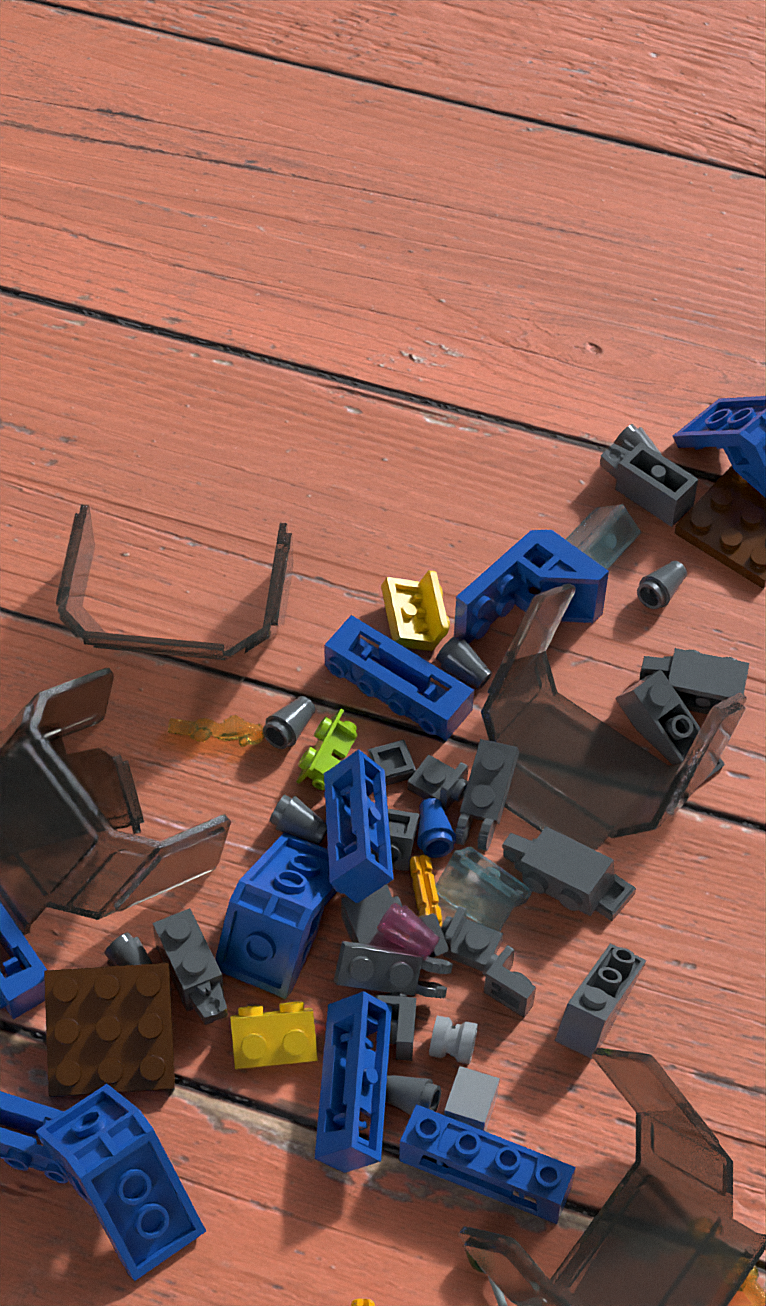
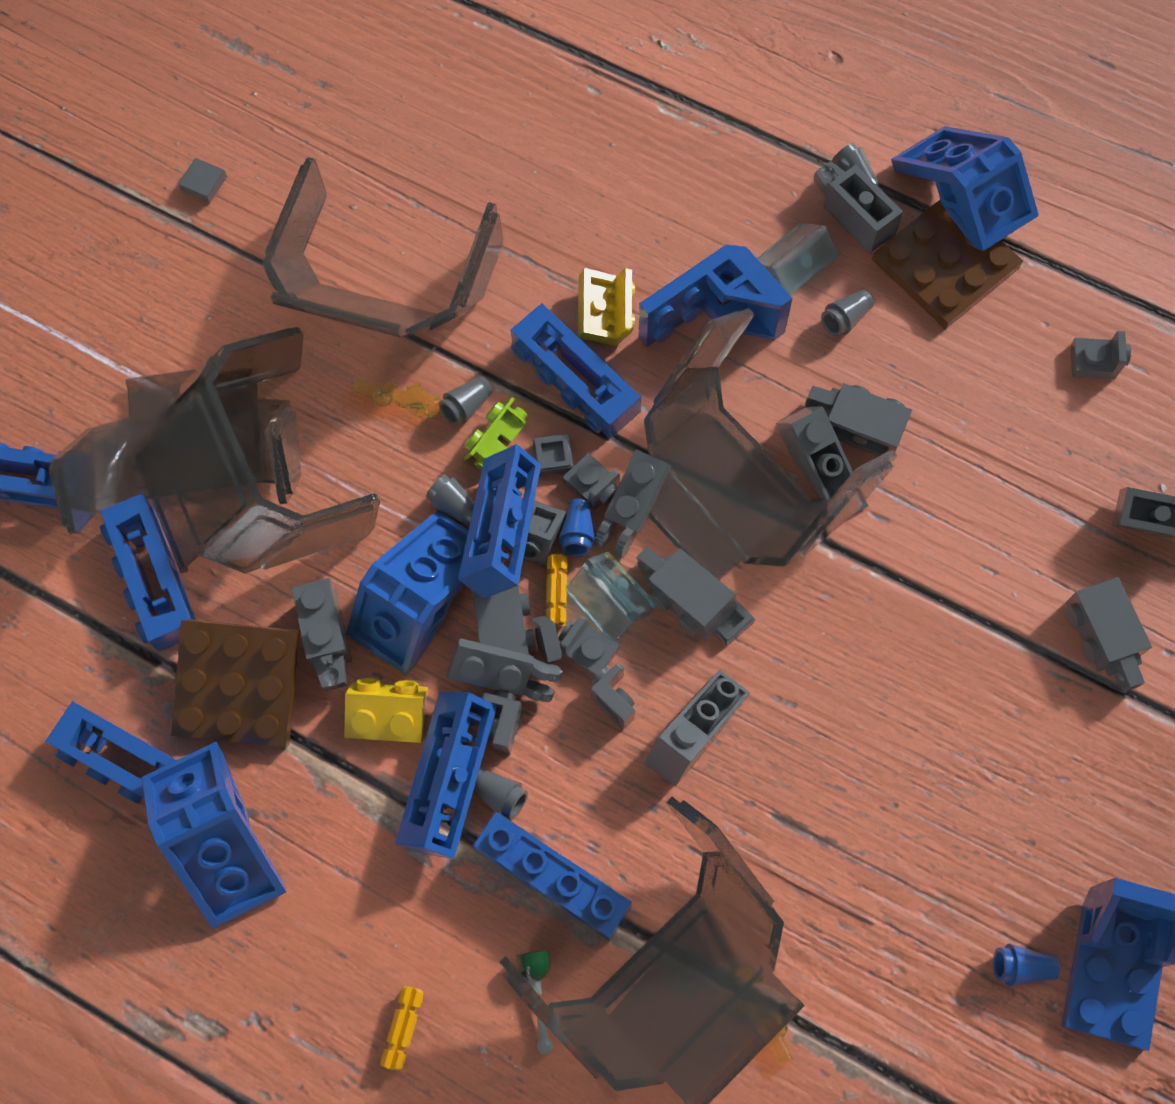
camera: 15 degrees right, 15 degrees up
(126, 951) = (270, 610): dark grey cone -> none
(407, 930) = (523, 636): clear pink cone -> none
(451, 1039) = (549, 745): light grey wheel -> none
(463, 662) = (640, 364): dark grey cone -> none
(472, 1098) = (552, 812): light grey brick -> none

